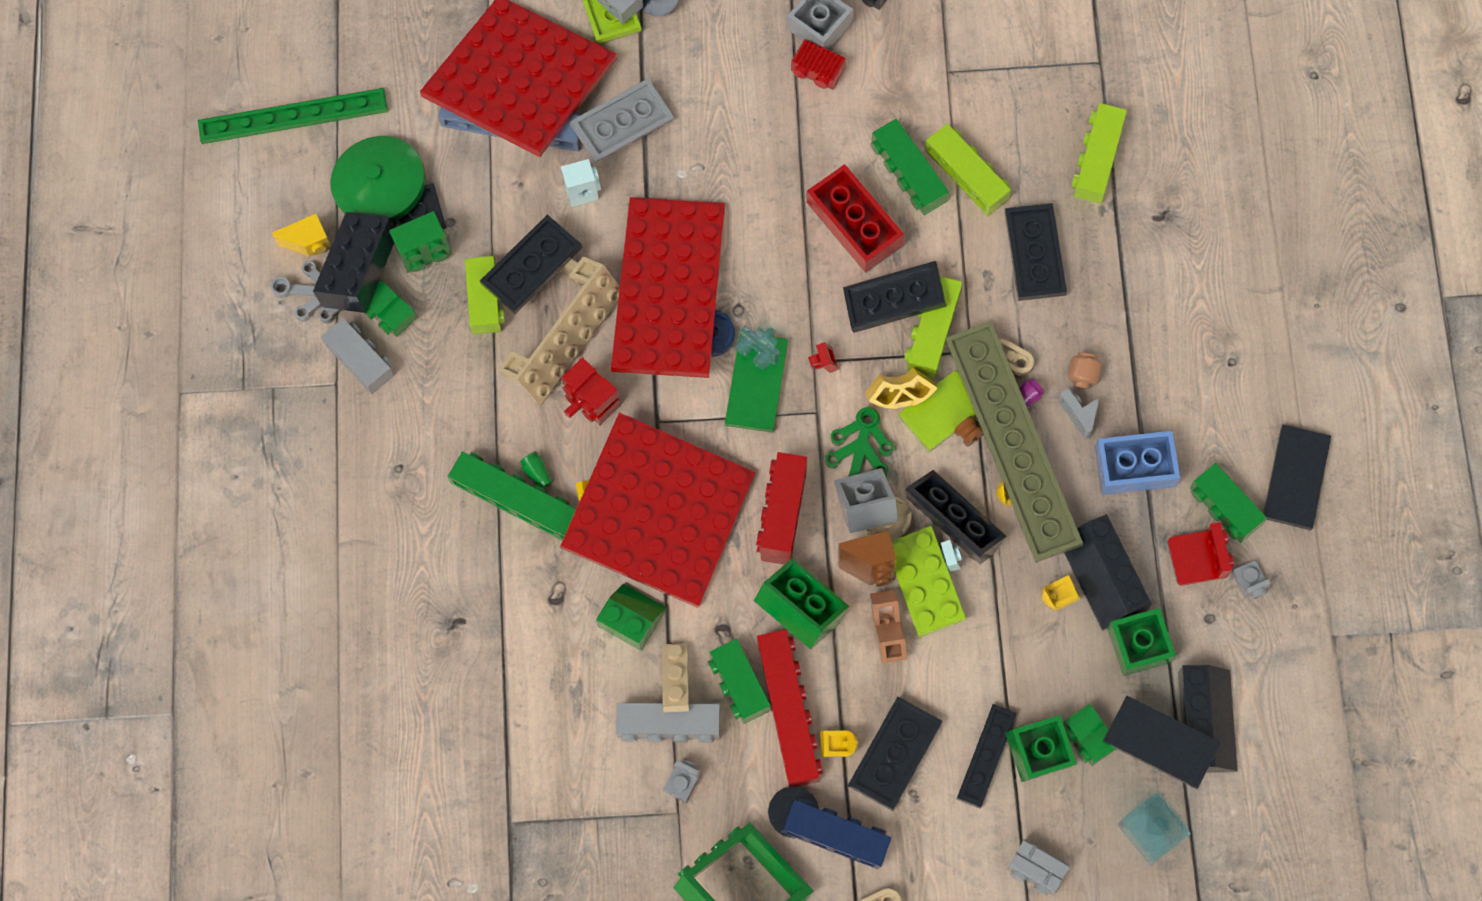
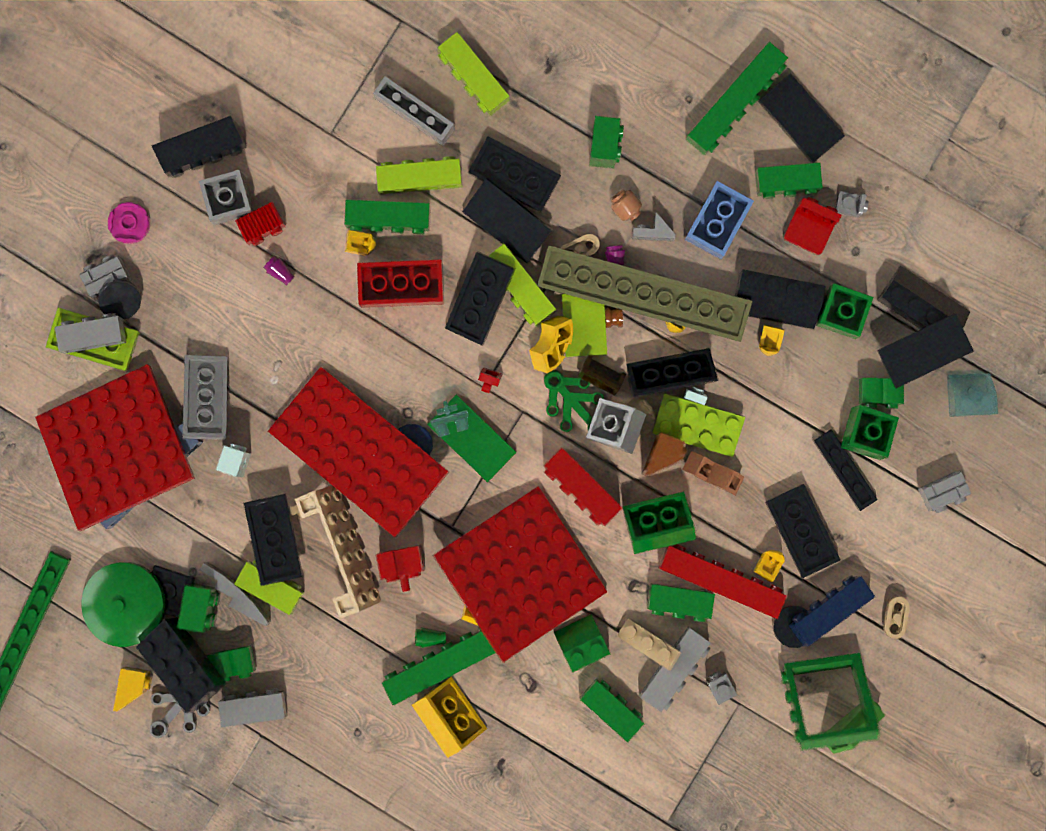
camera: 55 degrees left, 15 degrees up
(455, 275) = (242, 600): none -> light grey slope
(472, 539) = (449, 717): none -> yellow slope
(586, 688) = (612, 709): none -> green brick
(787, 106) = (278, 270): none -> magenta cone
(865, 160) = (359, 243): none -> yellow plate
(904, 456) = (601, 376): none -> dark brown hinge
(986, 273) = (507, 220): none -> black tile
(1024, 123) = (414, 111): none -> light grey brick
(1128, 307) = (605, 140): none -> green brick
(1267, 402) = (736, 99): none -> green brick

